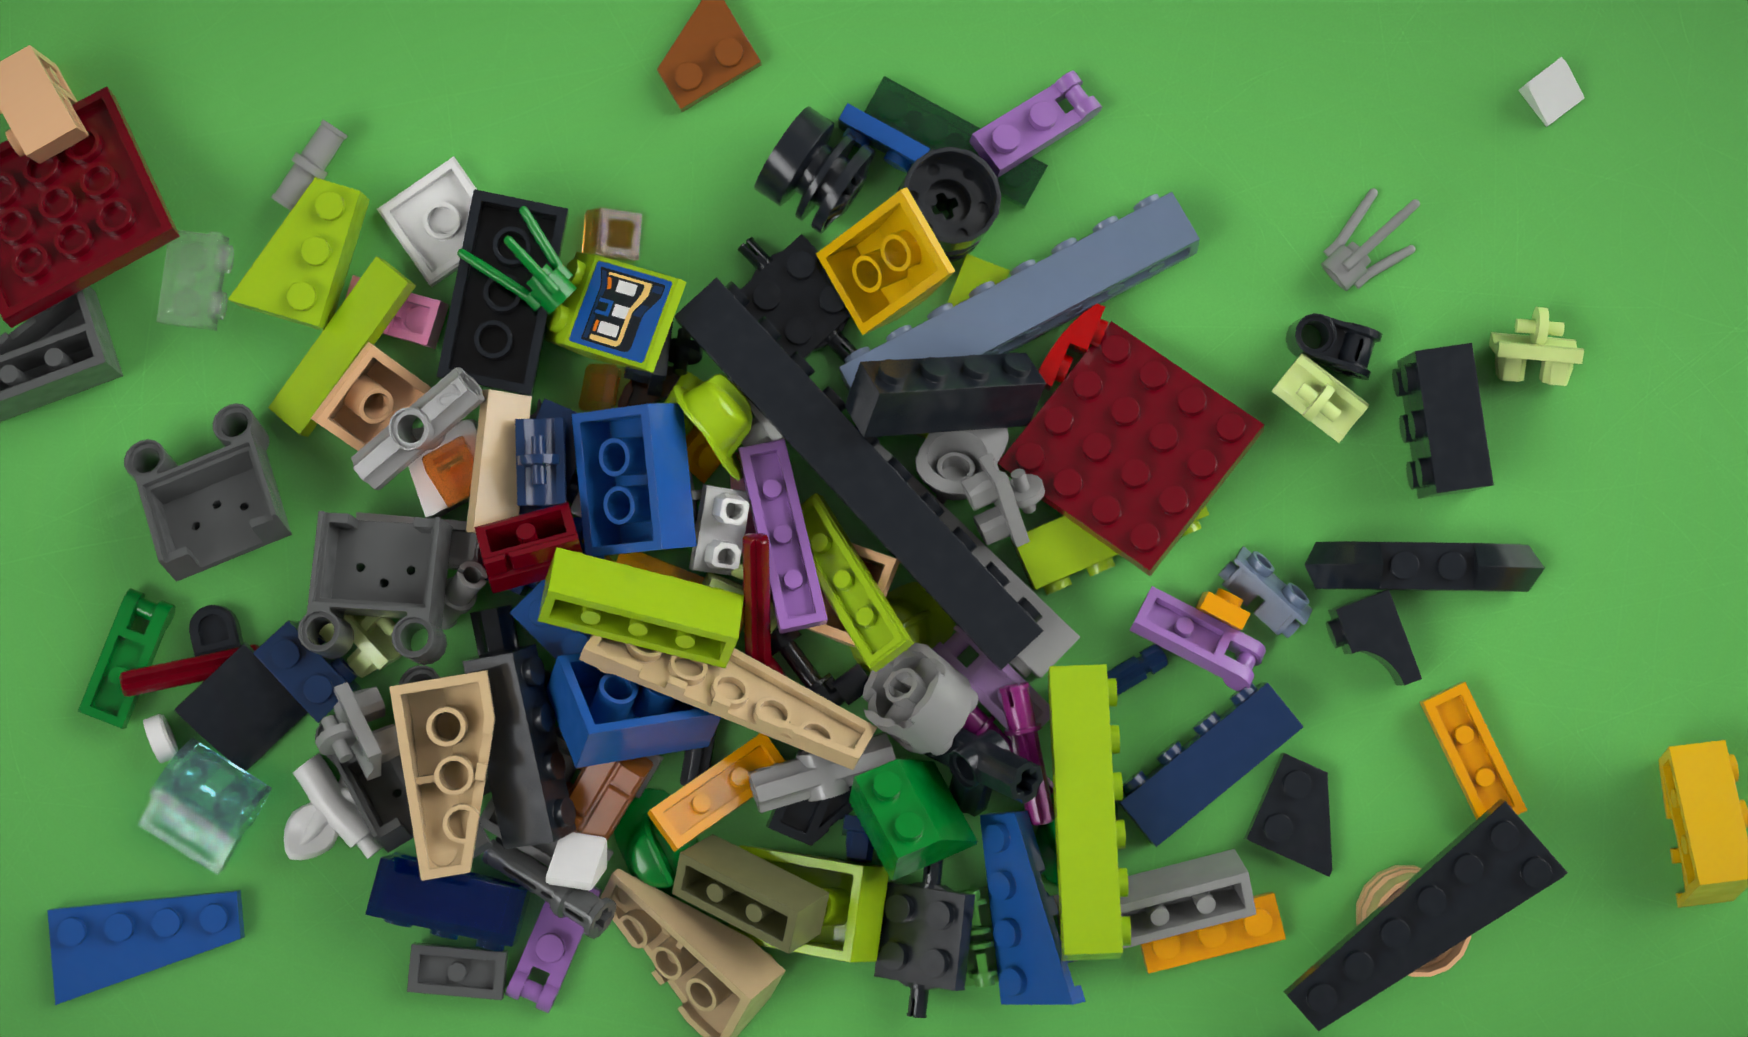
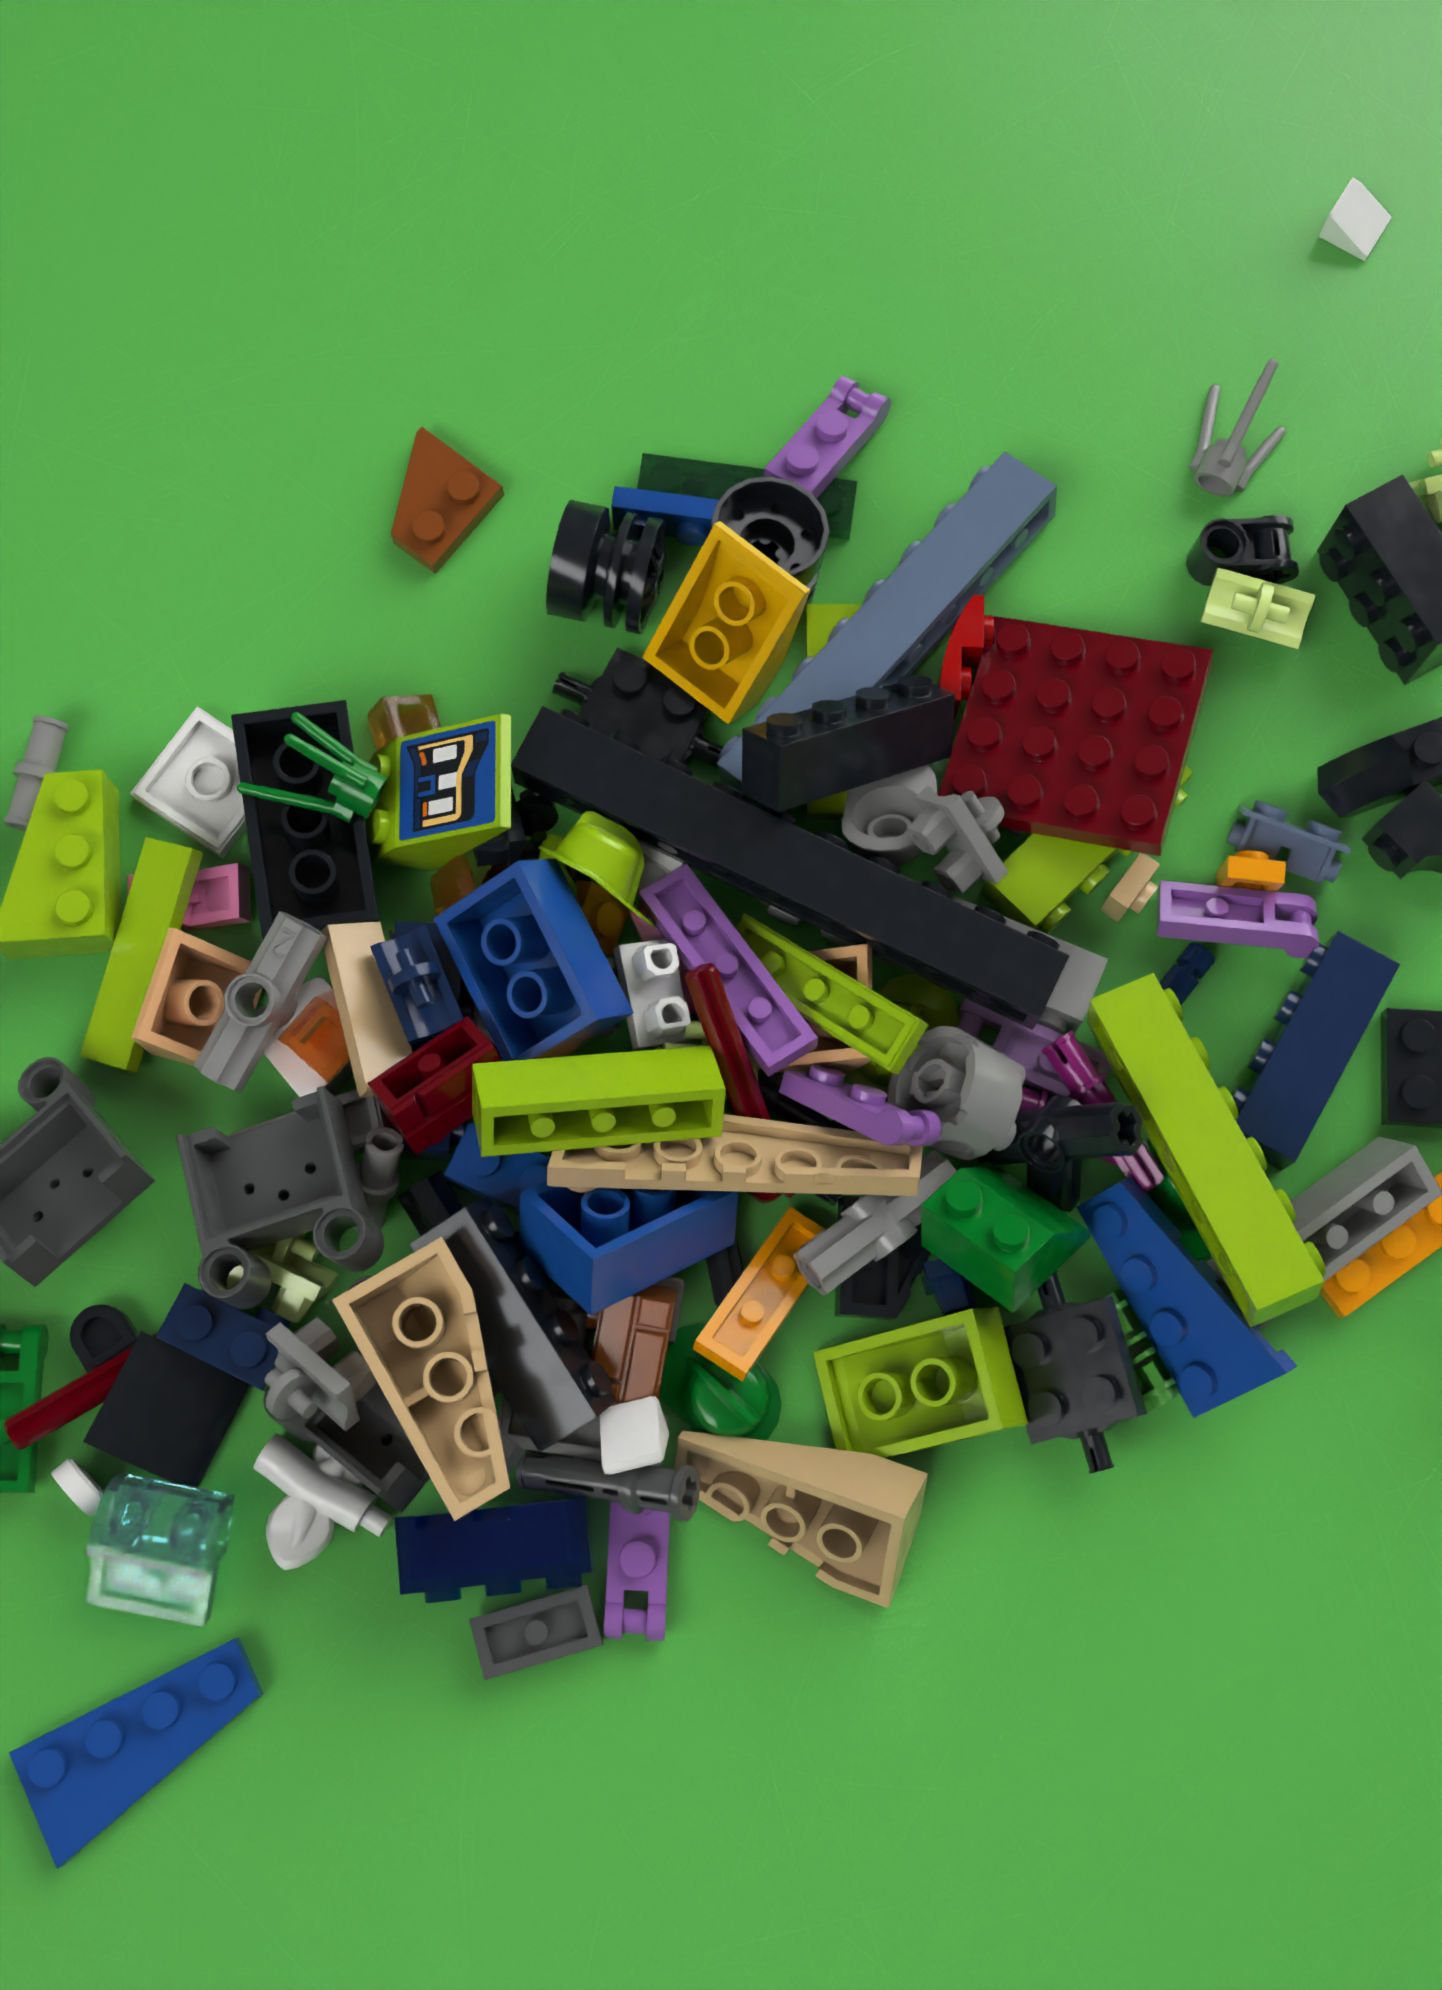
camera: 15 degrees left, 10 degrees down
(750, 893) = (852, 1394): olive brick -> none
(838, 684) = (860, 1107): none -> medium lavender plate
(1125, 587) = (1133, 889): none -> tan plate

